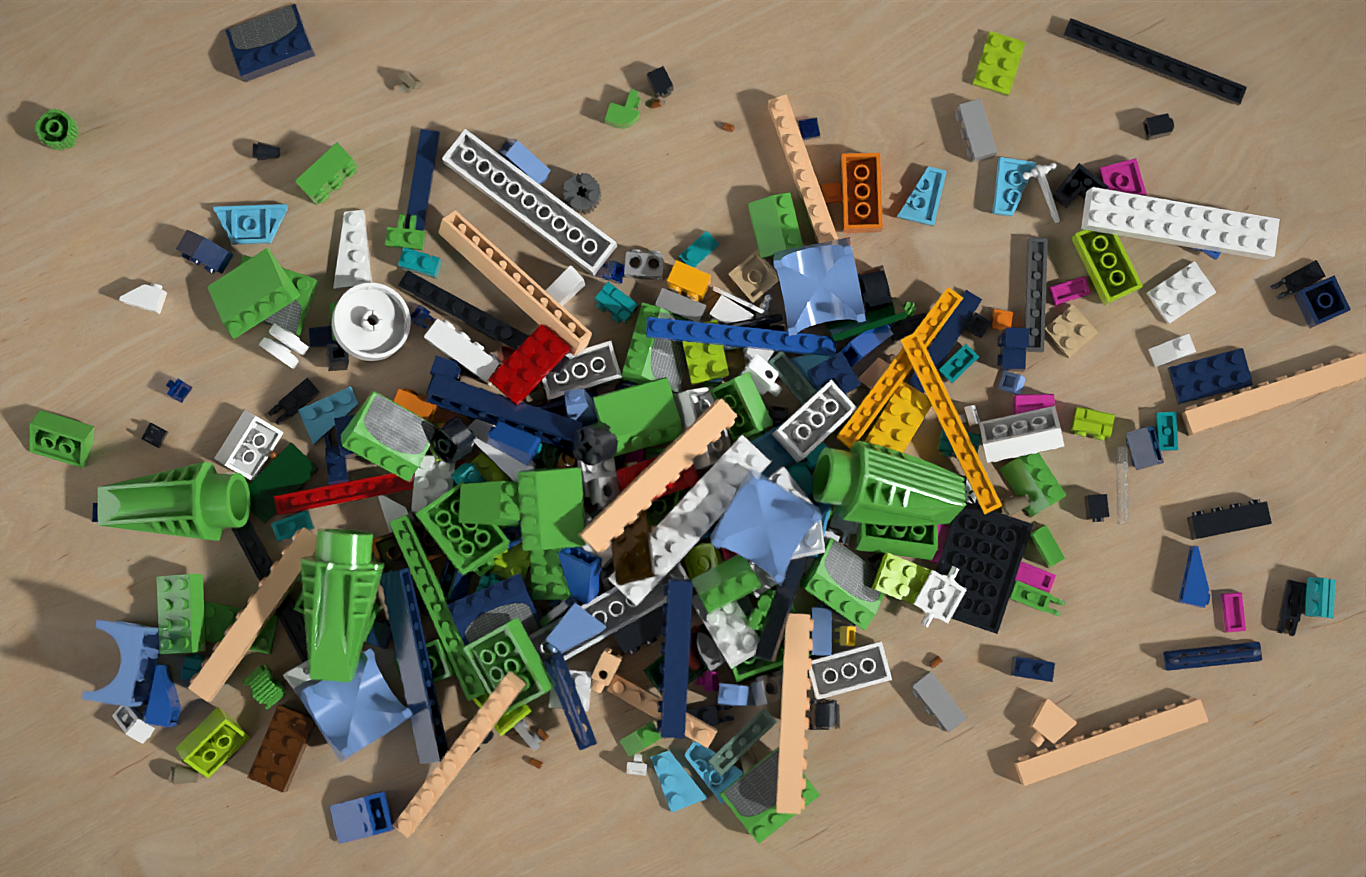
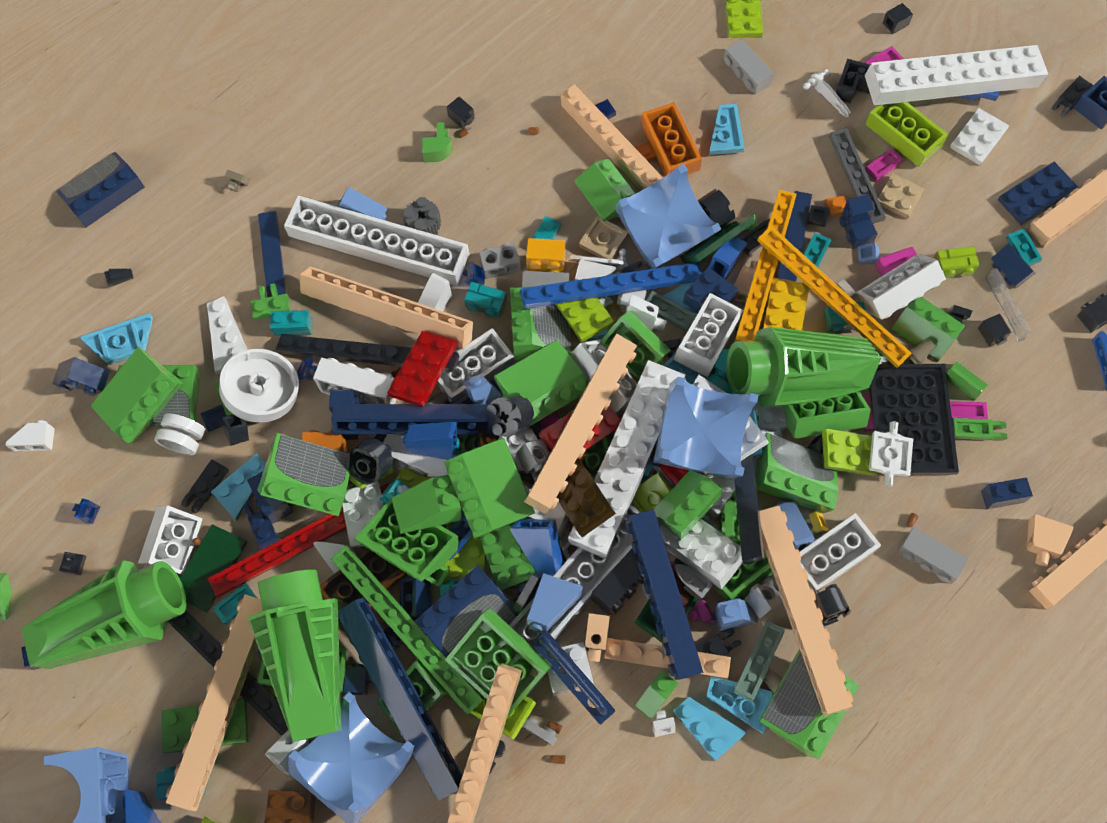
camera: 20 degrees left, 15 degrees down
(181, 614) = (141, 730): bright green brick -> none
(264, 686) = (249, 776): bright green brick -> none
(327, 174) = (180, 273): bright green brick -> none
(1010, 184) = (794, 99): medium azure wing -> none
(1070, 478) = (960, 313): none -> black tile
(1172, 350) = (996, 181): white slope -> none

